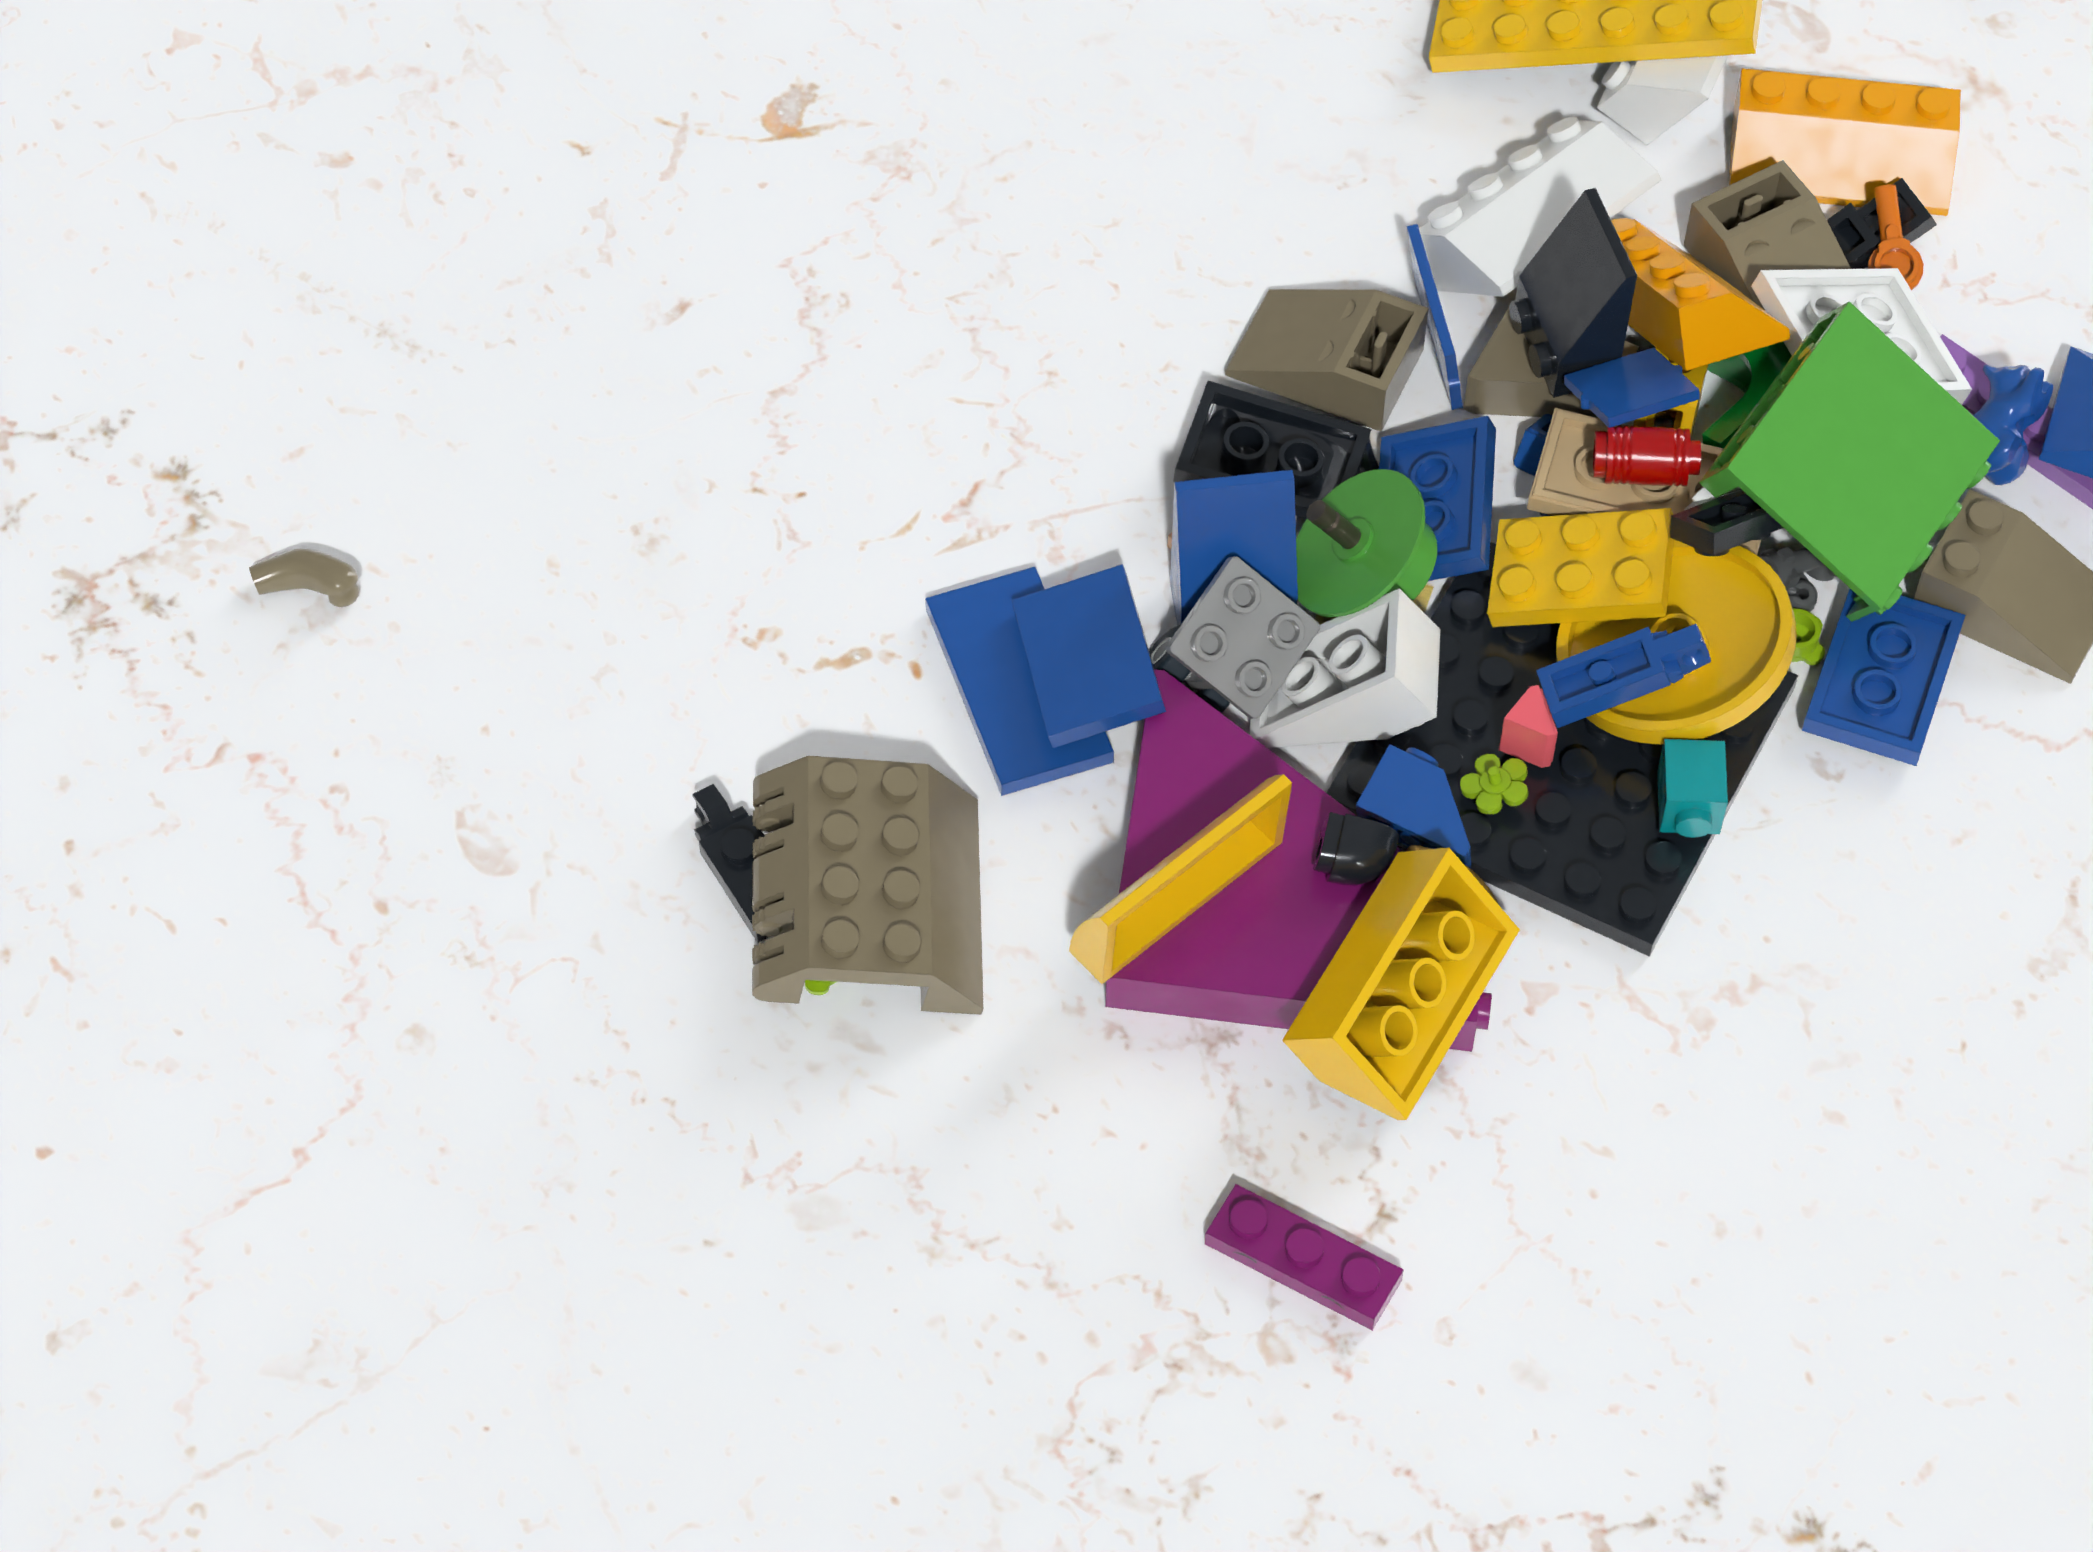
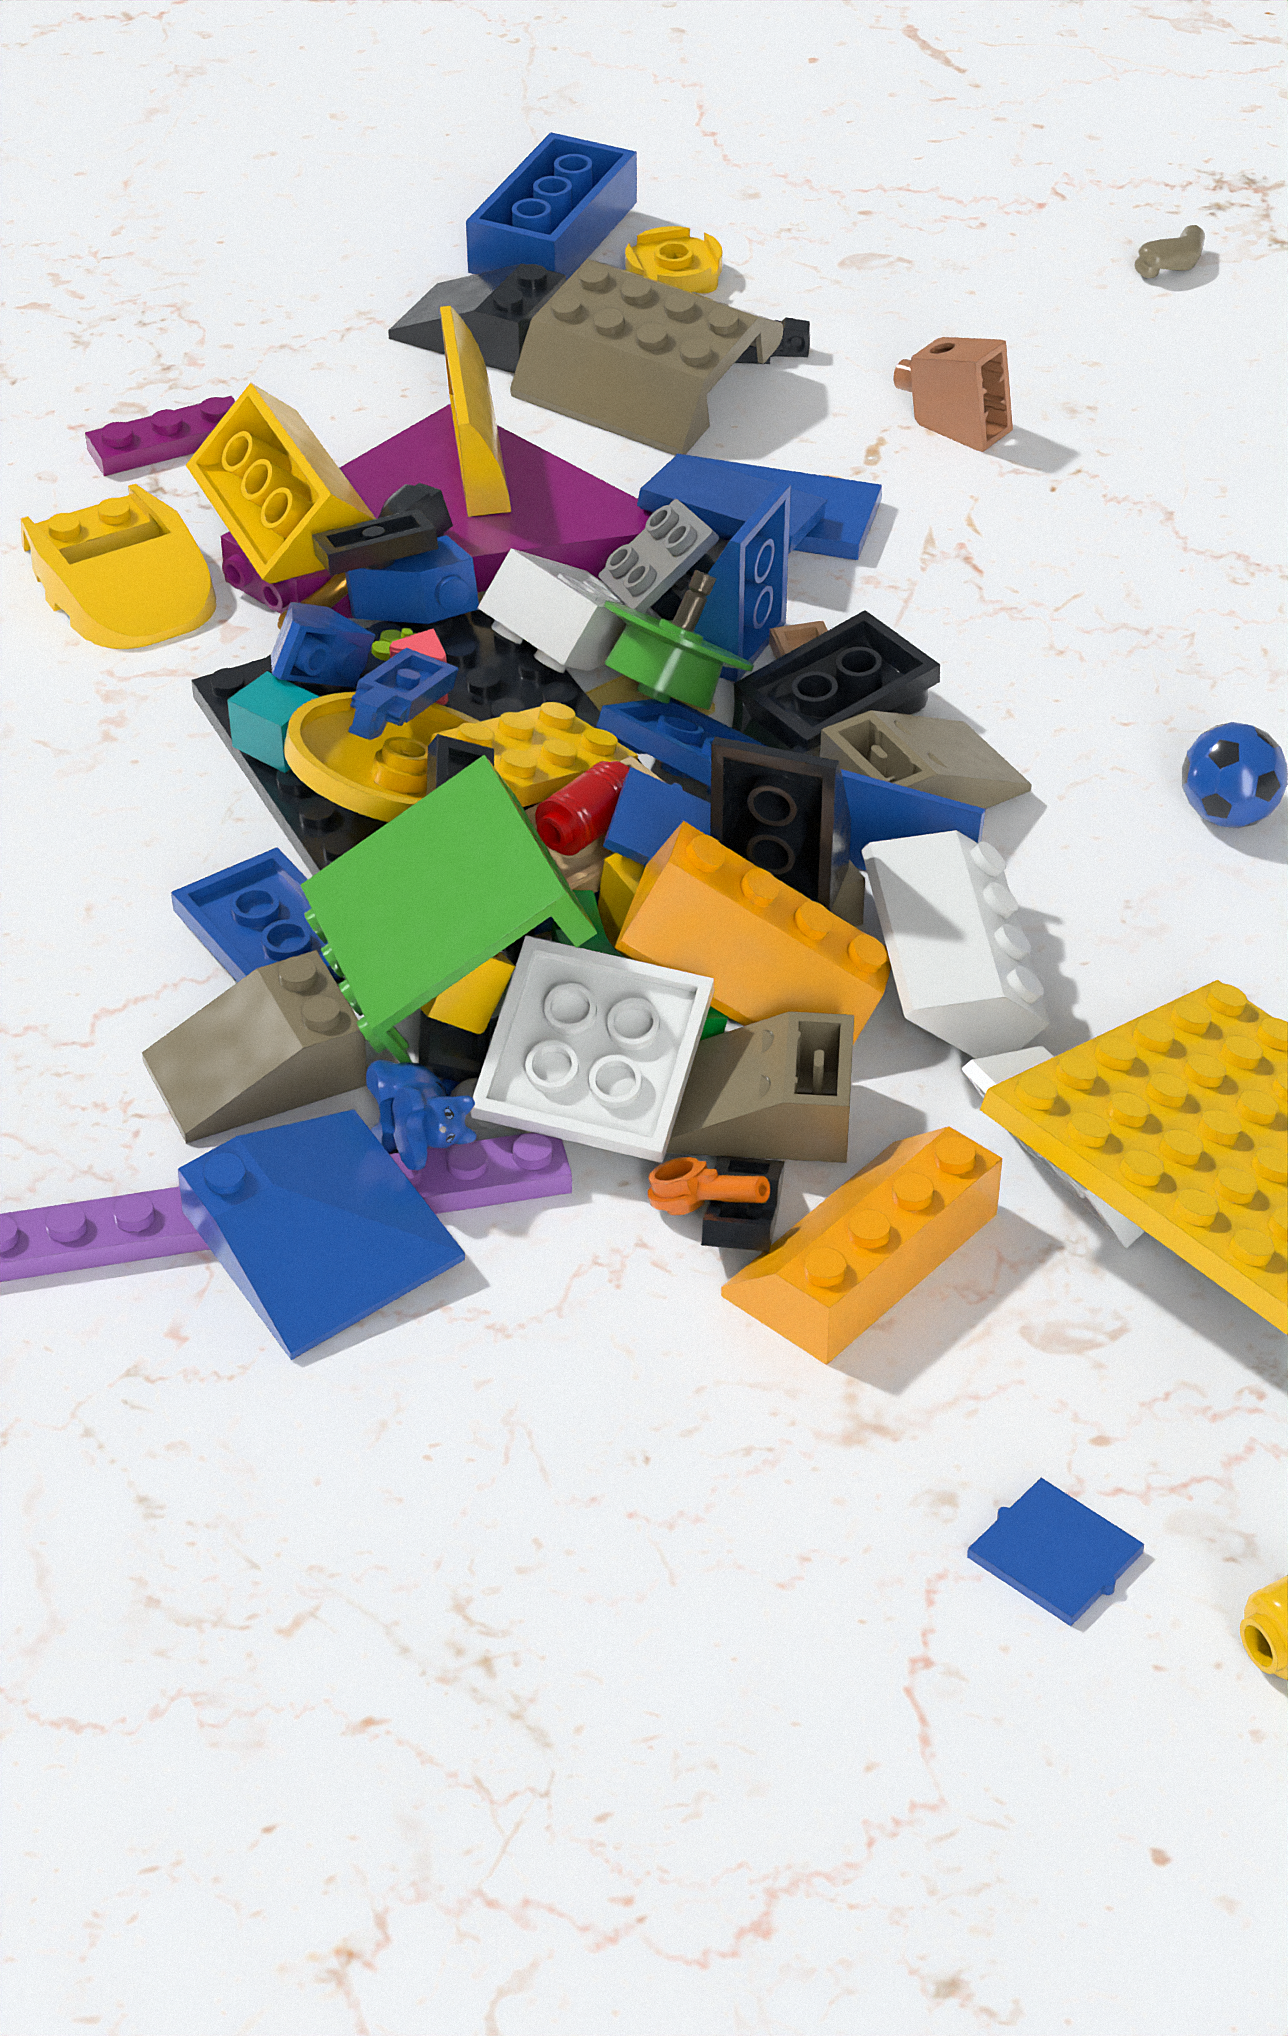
camera: 125 degrees right, 15 degrees down
(650, 1028) = (676, 258): none -> yellow plate
(656, 1136) = (553, 206): none -> blue brick
(742, 594) = (960, 389): none -> nougat torso
(887, 1102) = (492, 305): none -> black slope
(1175, 147) = (1234, 775): none -> blue piece
(1444, 816) = (375, 542): none -> black plate
(1565, 1075) = (122, 570): none -> yellow slope
(1598, 798) = (320, 647): none -> blue slope

